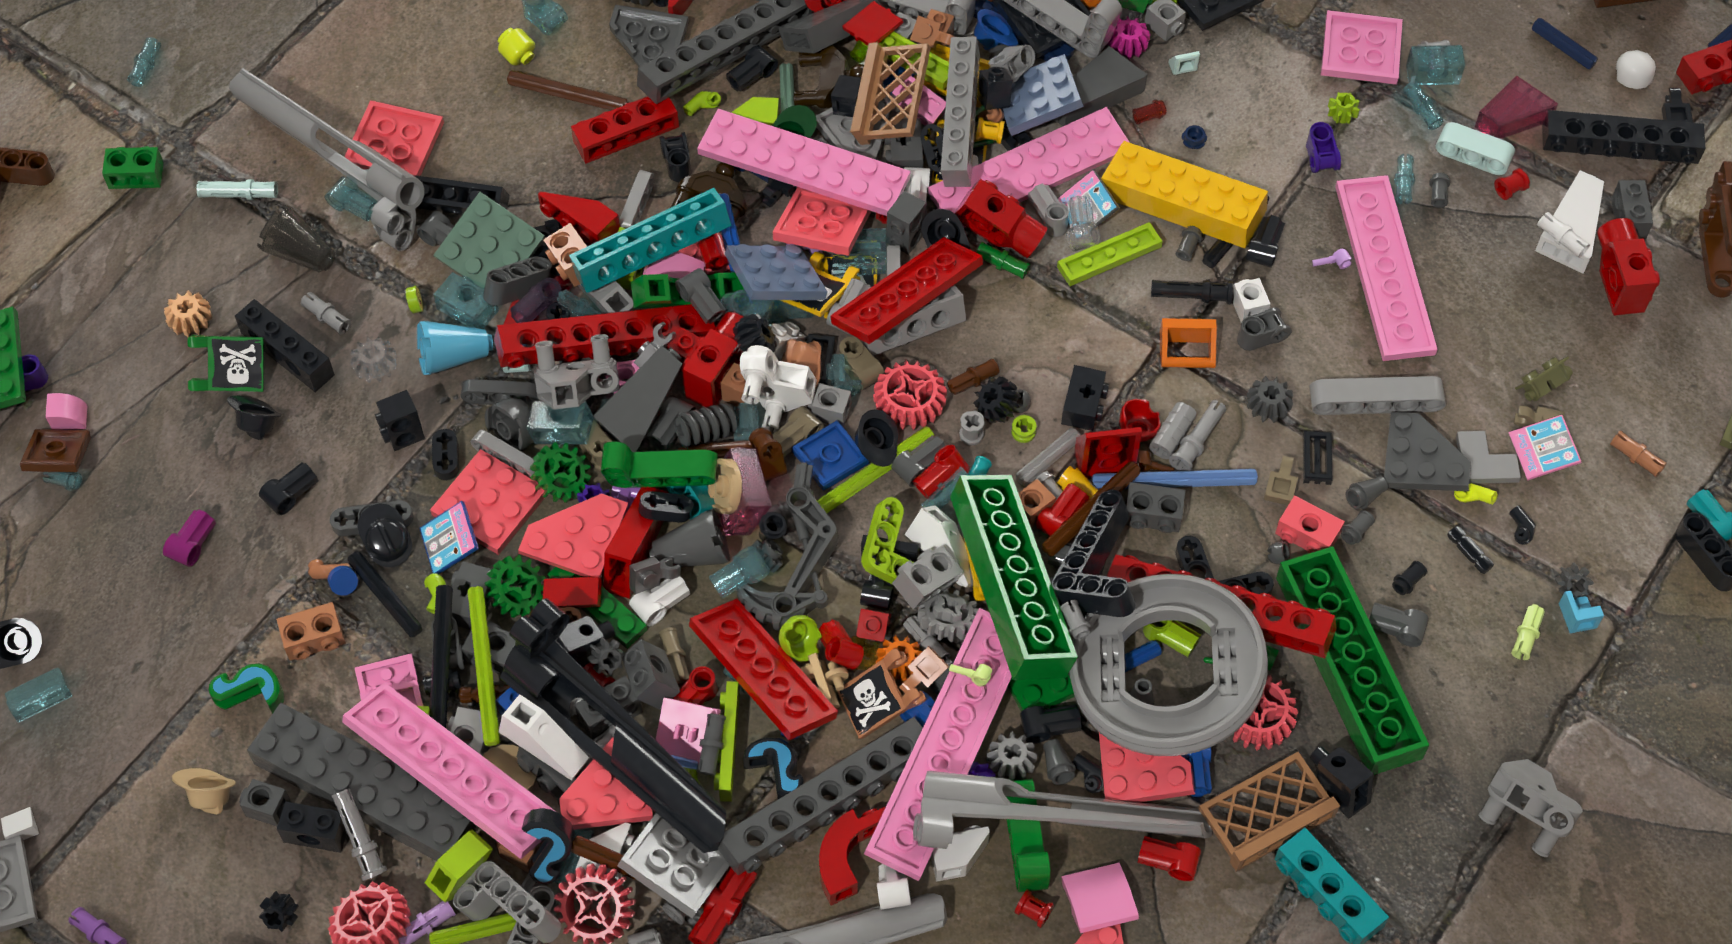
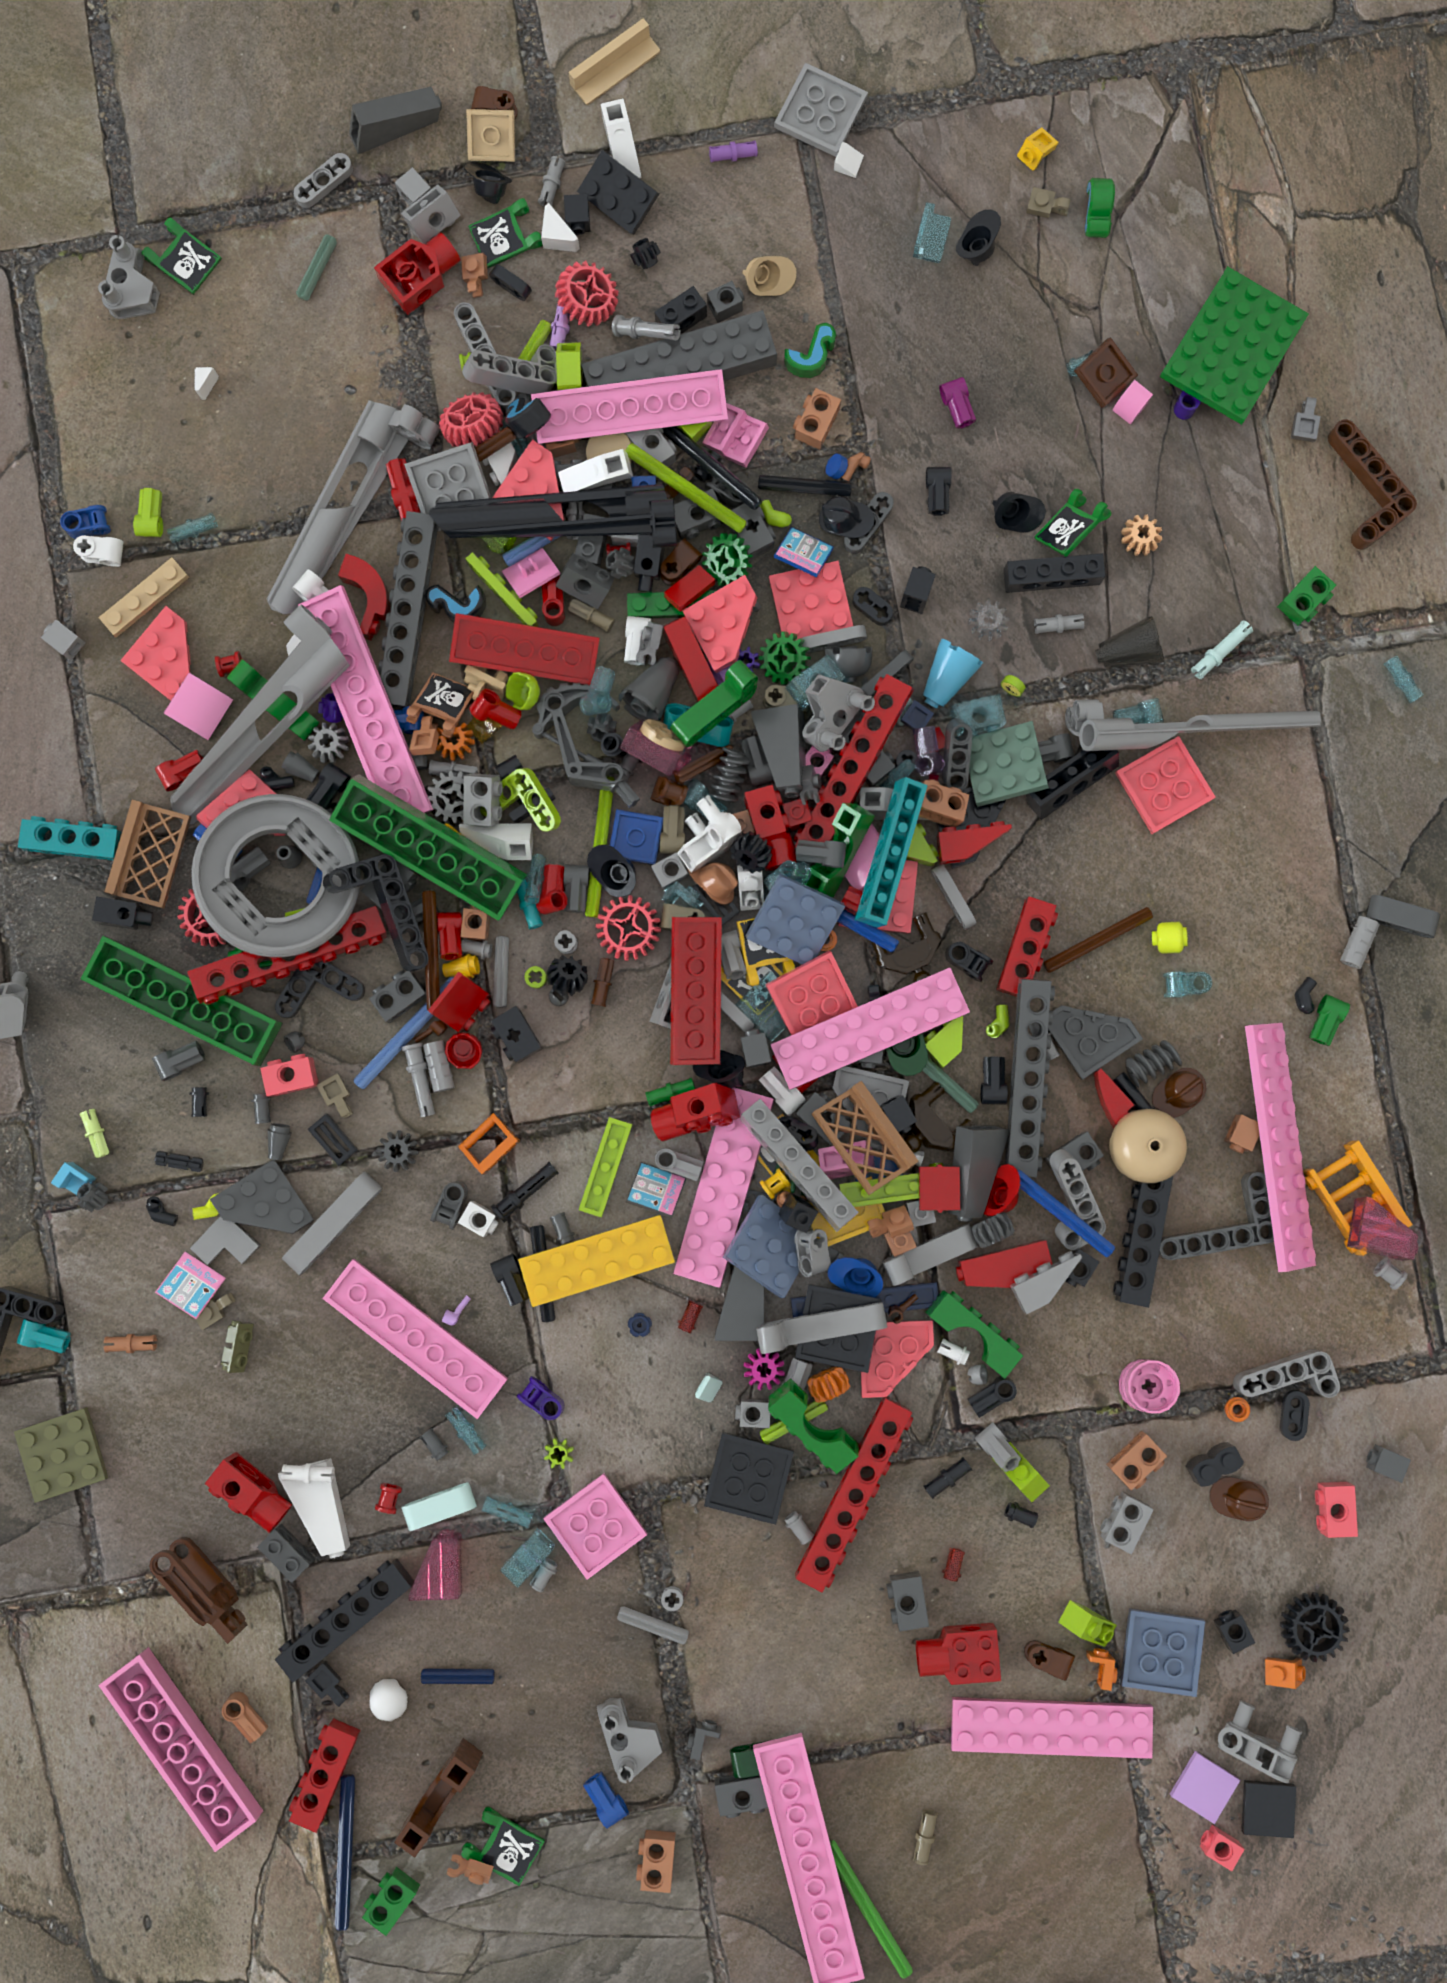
camera: 140 degrees right, 25 degrees up
(665, 506) = (682, 684): black beam -> none
(711, 744) = (502, 571): dark grey pin -> none
(873, 625) = (491, 747): red bracket -> none
(979, 677) = (383, 761): yellowish green hand -> none
(1078, 626) = (354, 846): light grey pin -> none
(1082, 230) = (637, 1163): clear piece -> none

